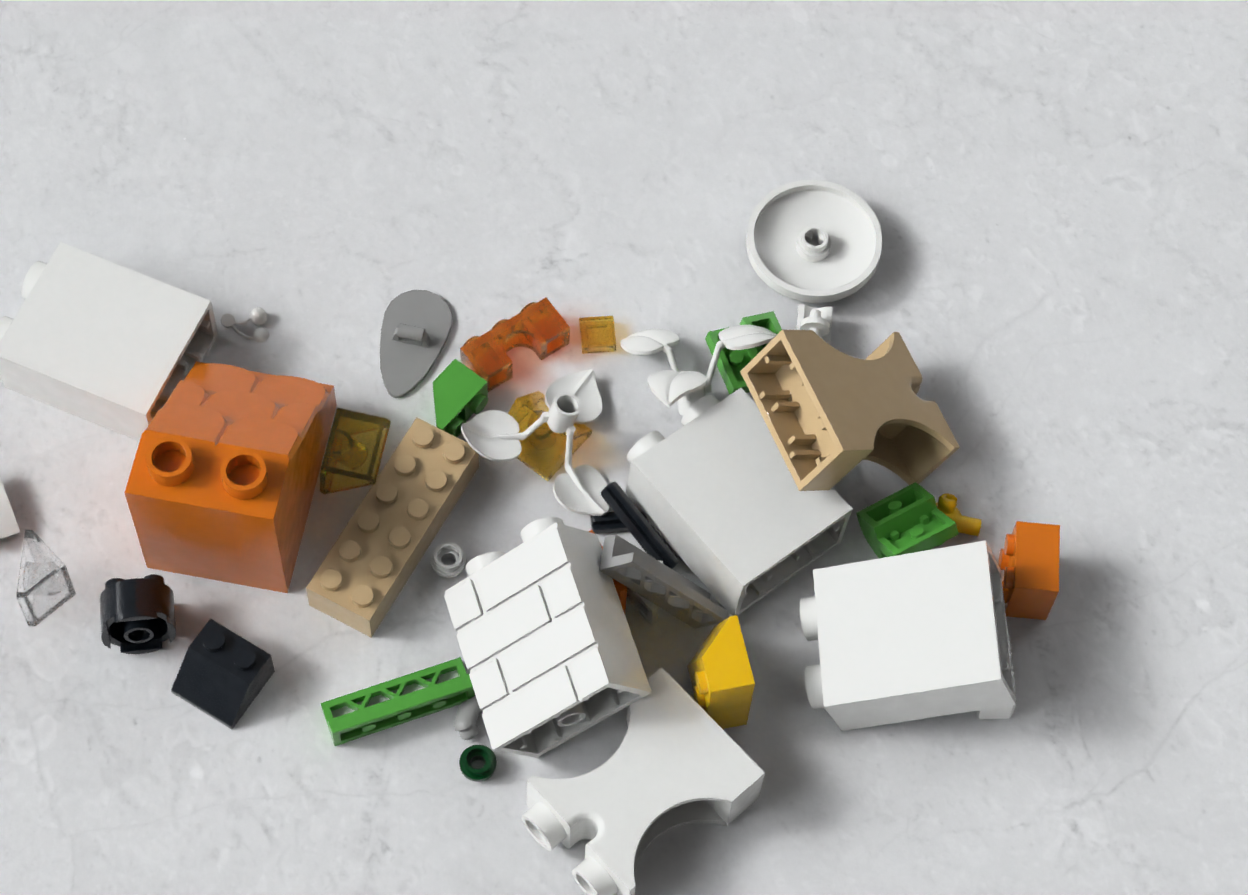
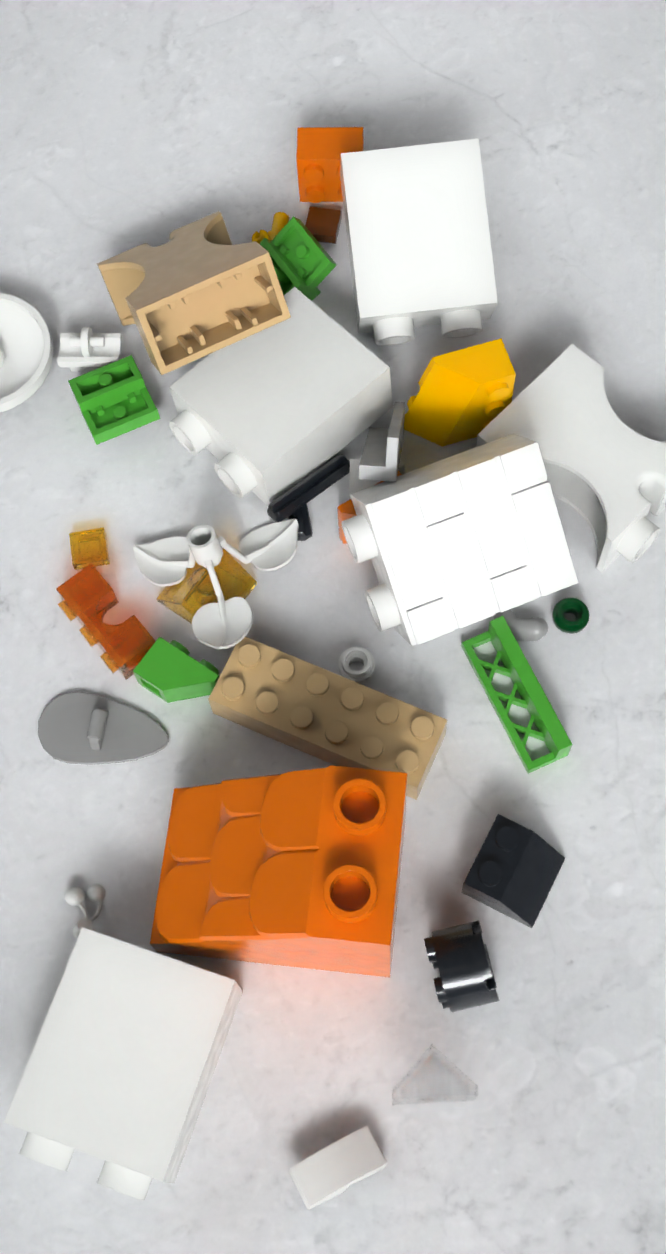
camera: 85 degrees left, 5 degrees up
(353, 451) = (247, 752): clear yellow slope -> none
(689, 385) = (171, 440): white plant -> none

